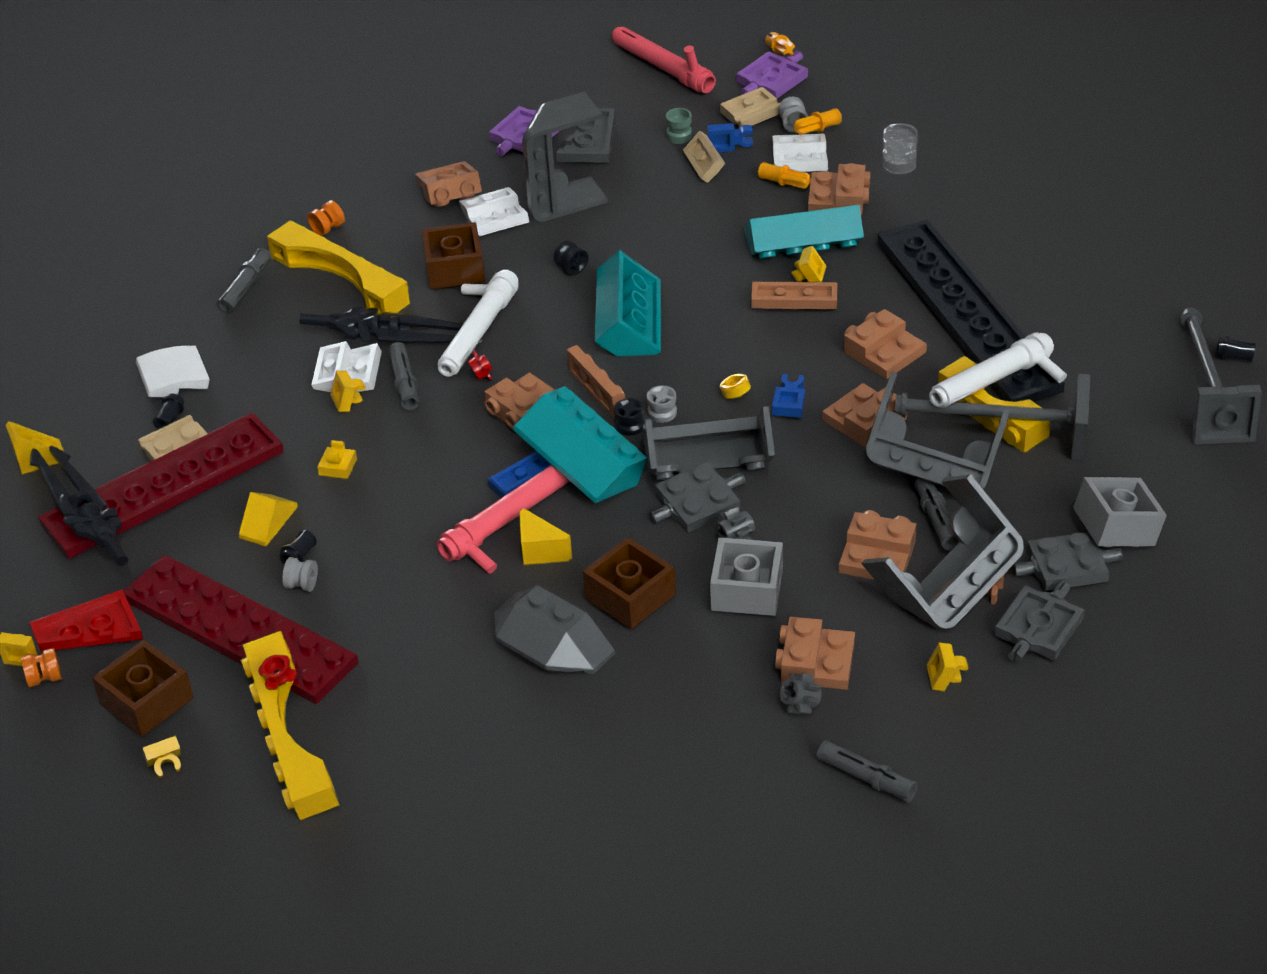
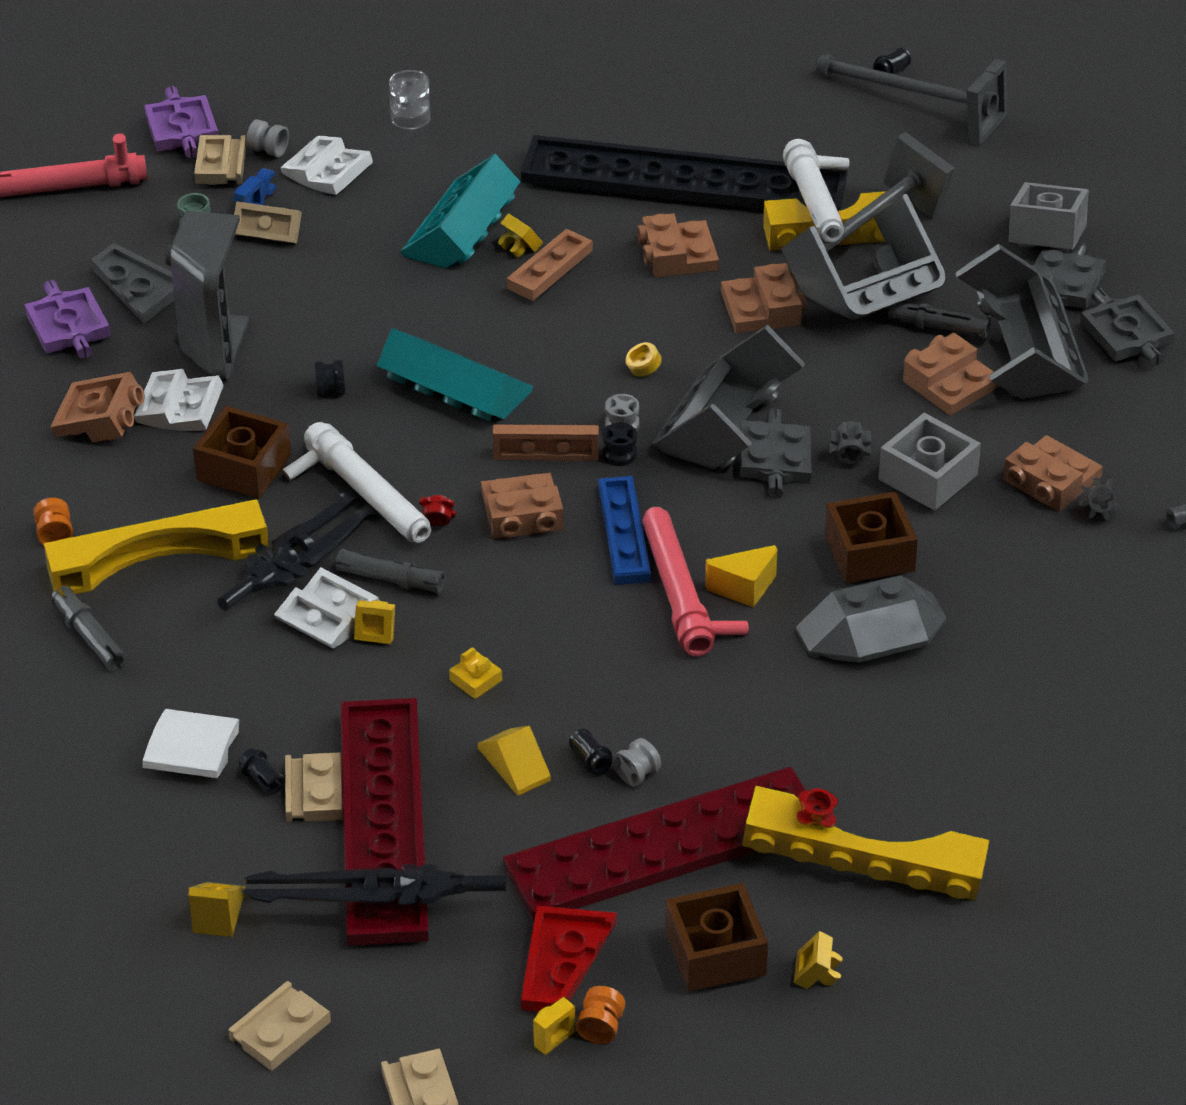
camera: 60 degrees left, 0 degrees up
(581, 445) = (653, 480): teal slope -> none
(779, 44) = (143, 92): light orange axle -> none
(784, 175) = (356, 188): light orange axle -> none
(789, 398) = (695, 335): blue plate -> none
(818, 121) = (297, 128): light orange axle -> none
(839, 189) = (418, 166): nougat plate -> none
(945, 667) = (1136, 403): yellow tile -> none

